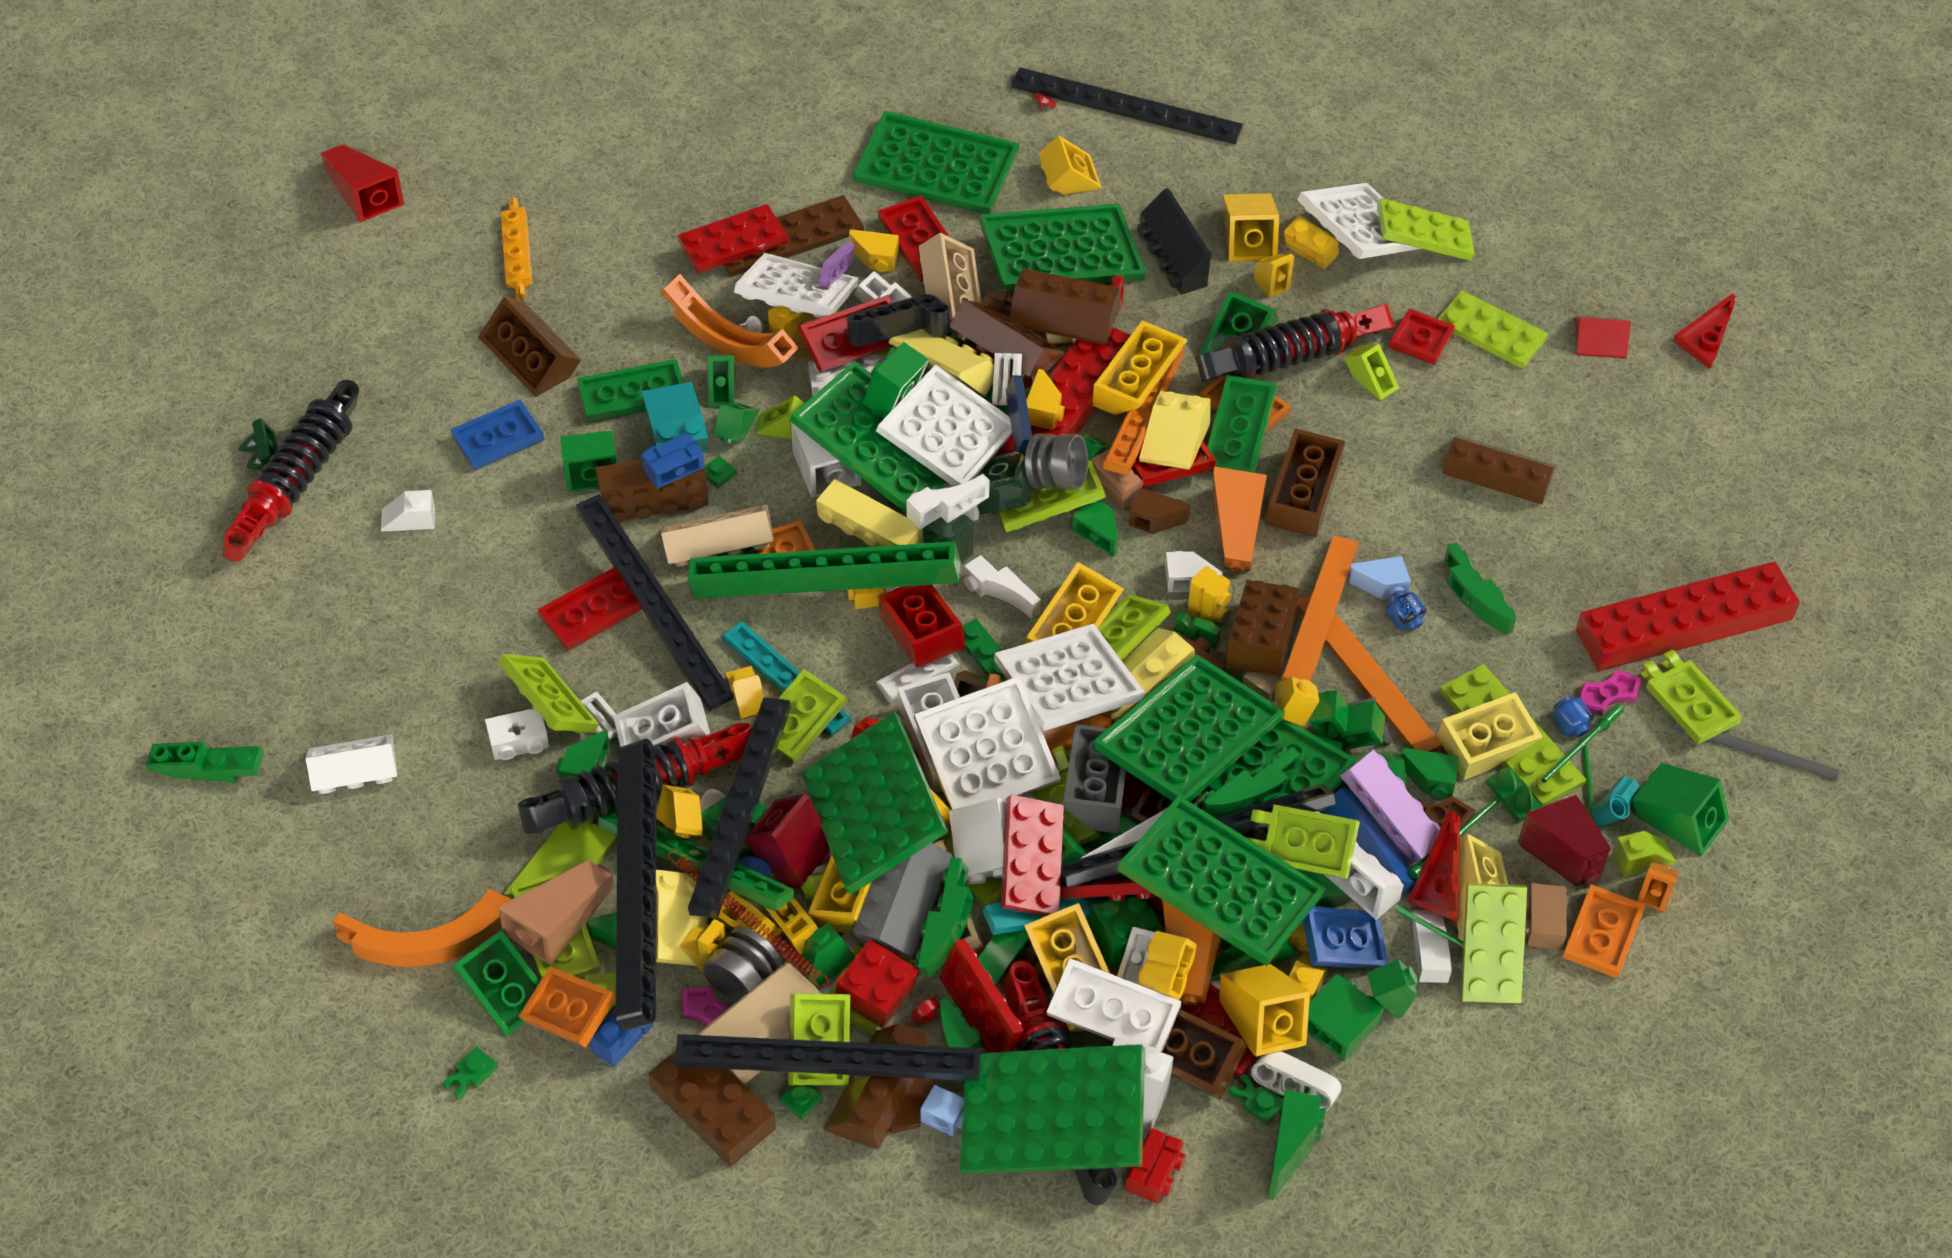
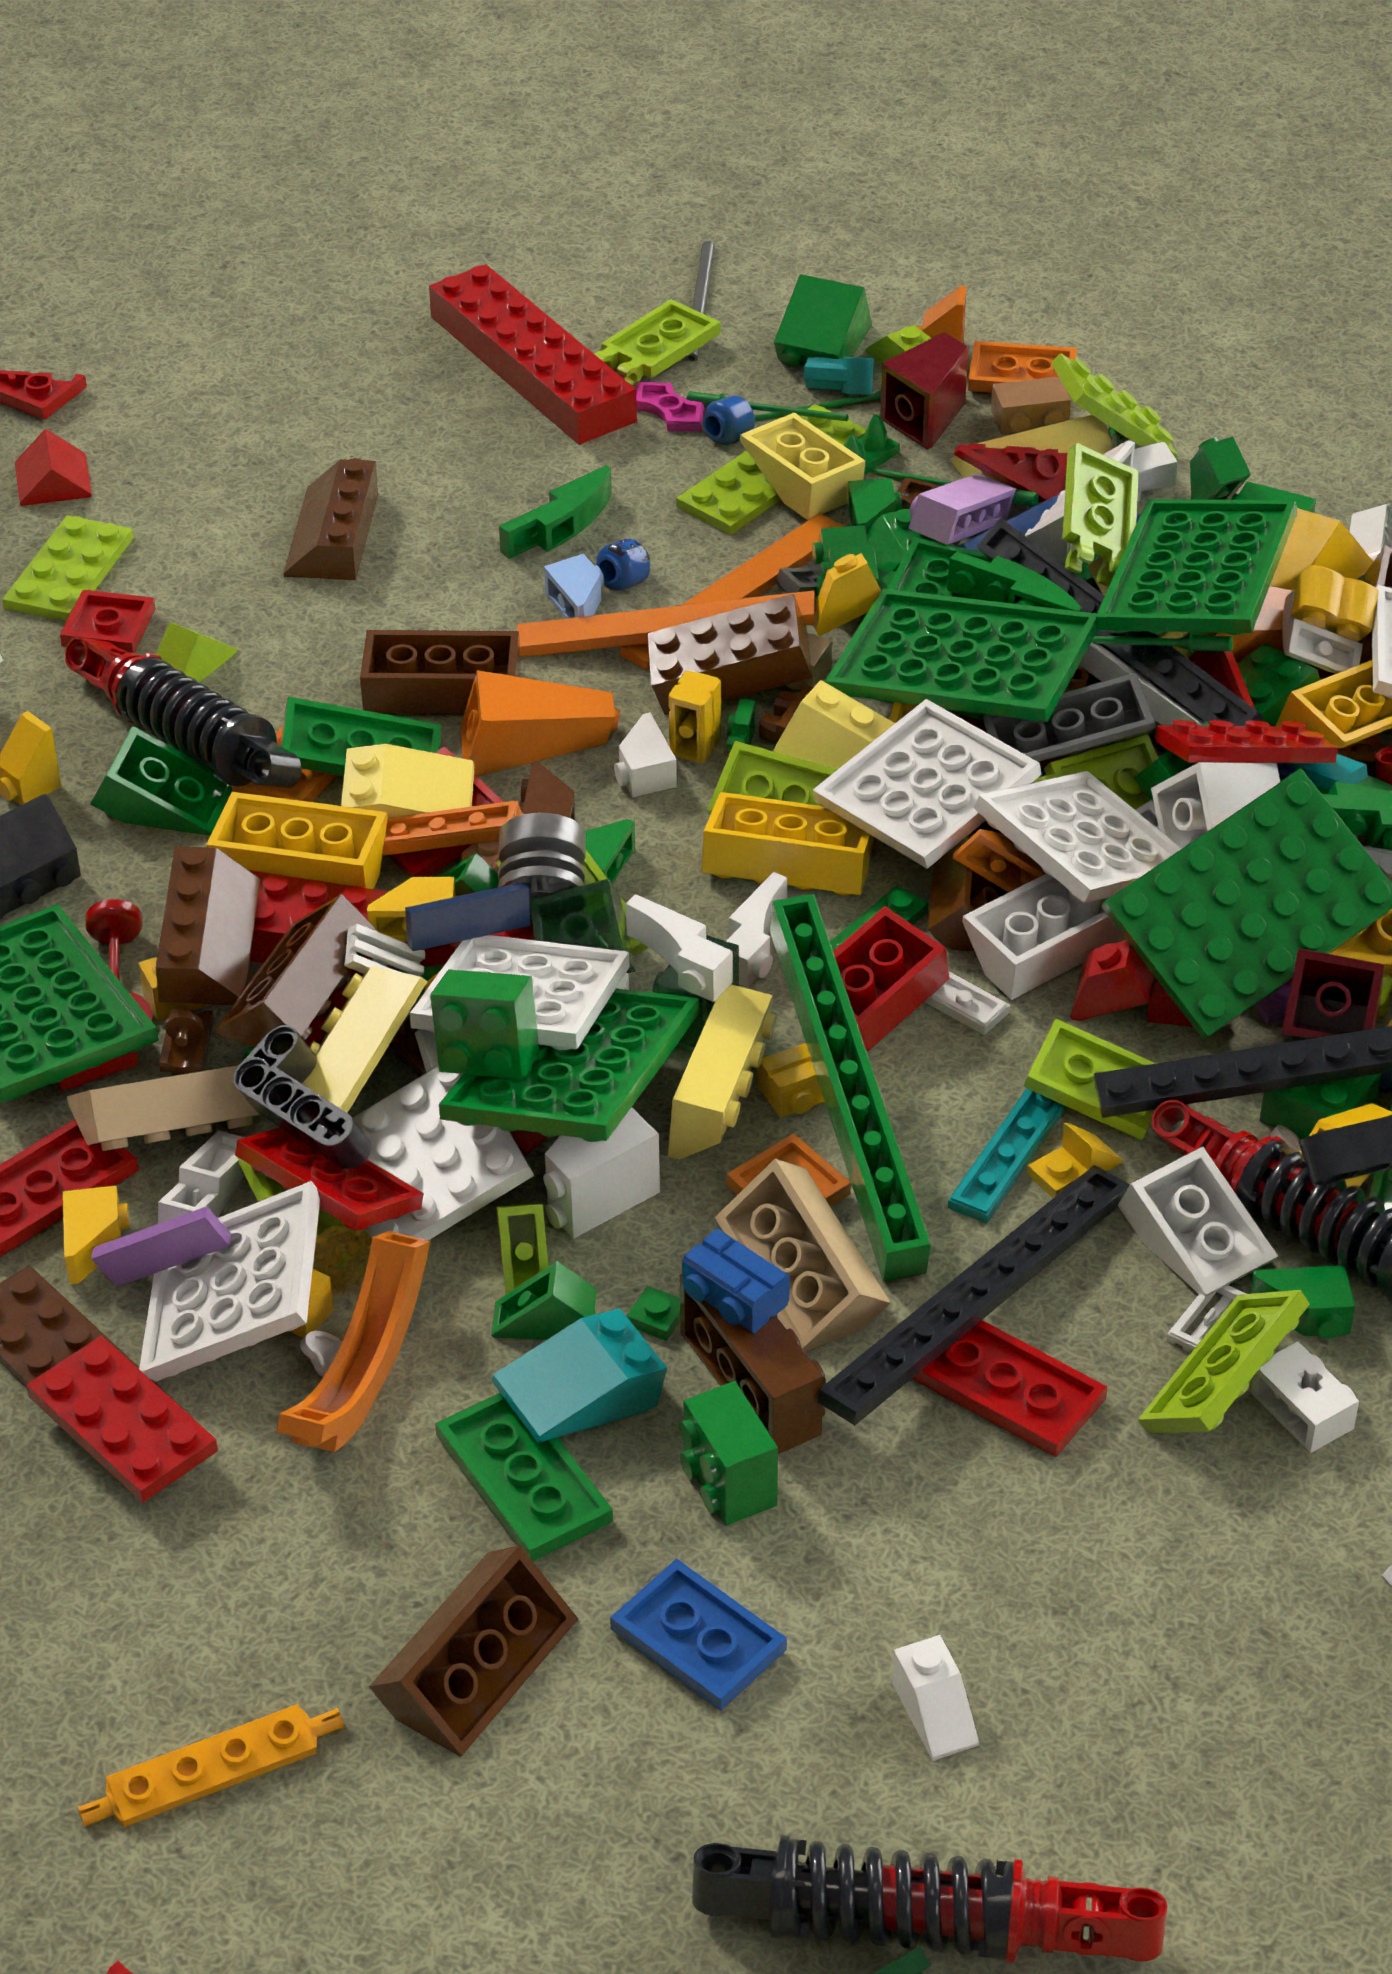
camera: 105 degrees left, 10 degrees down
(721, 379) = (453, 1351): green slope -> none

